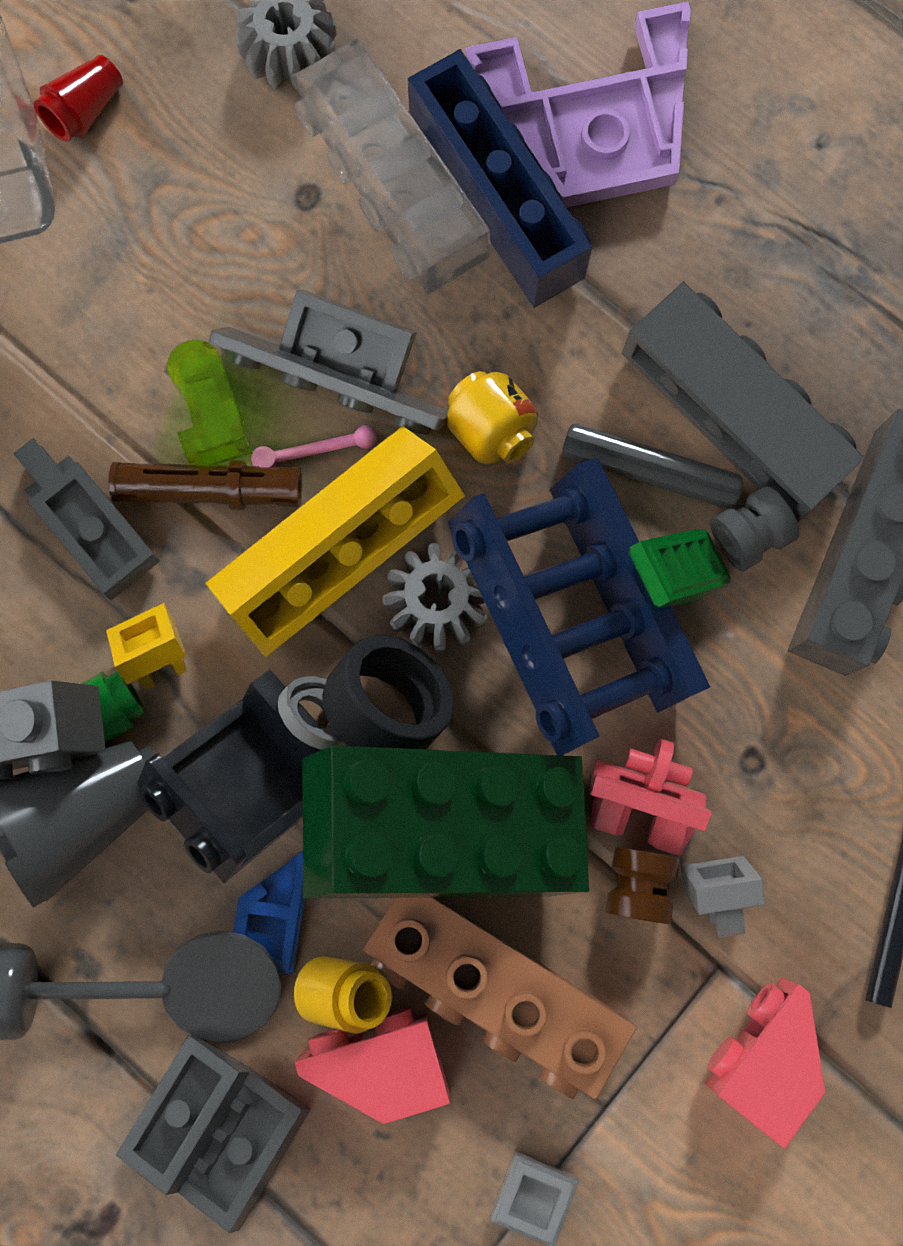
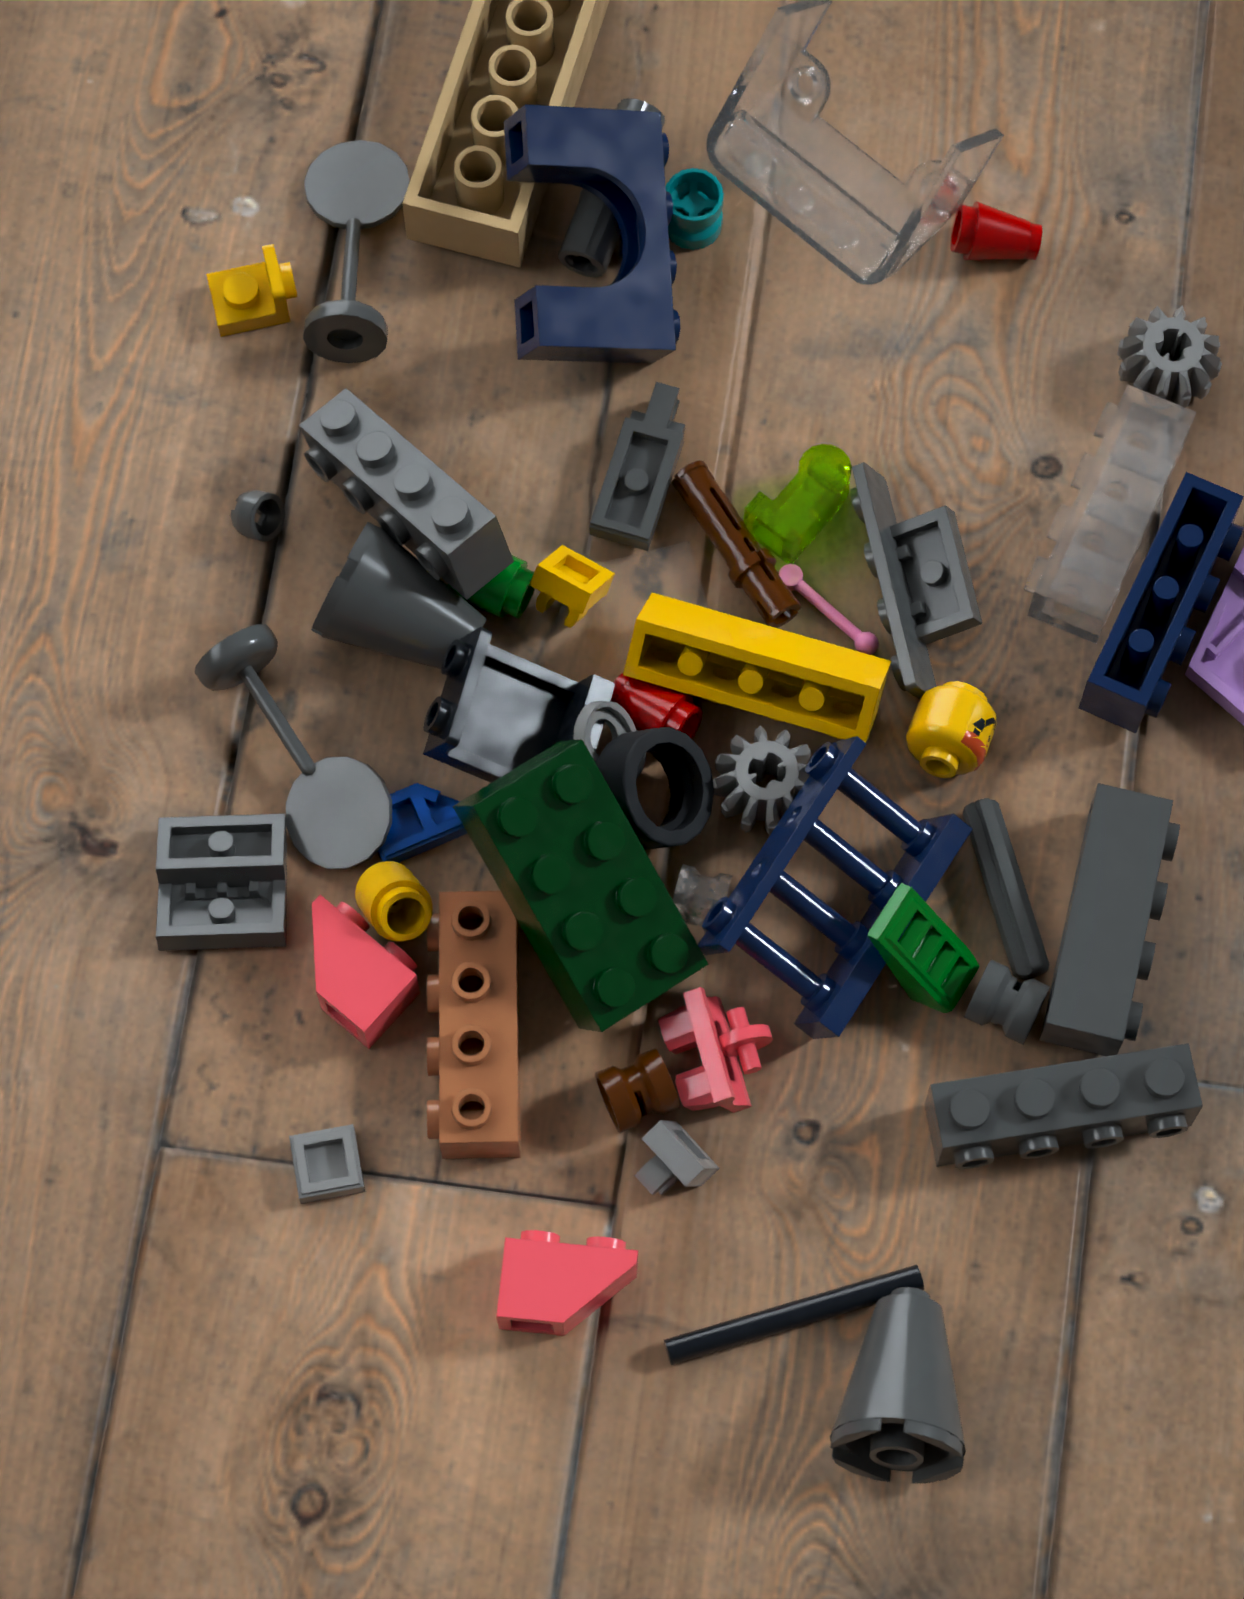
camera: 60 degrees right, 10 degrees down
(312, 649) = (656, 705): none -> red cone
(506, 720) = (699, 893): none -> clear wheel

